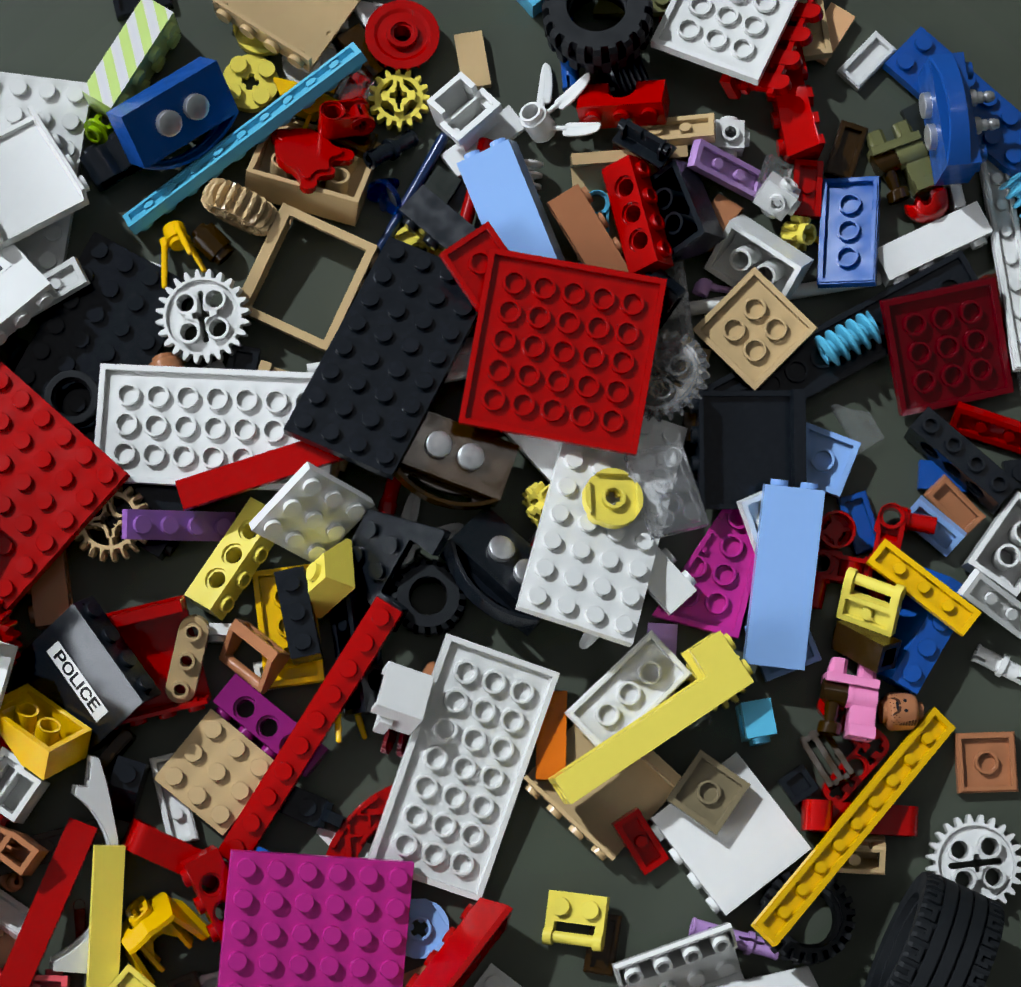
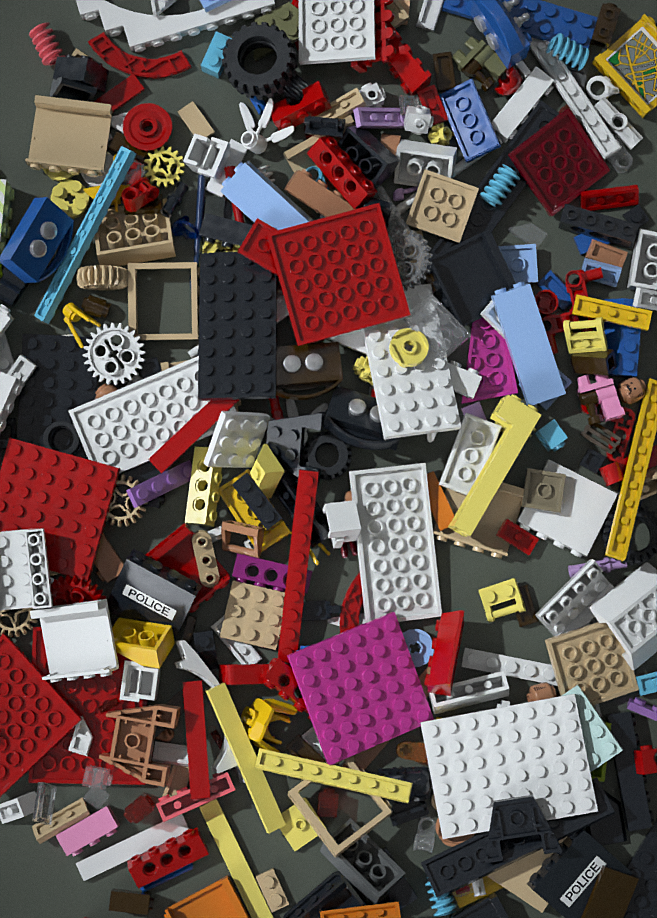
camera: 25 degrees left, 5 degrees up
(308, 156) = (128, 228): red tile -> none

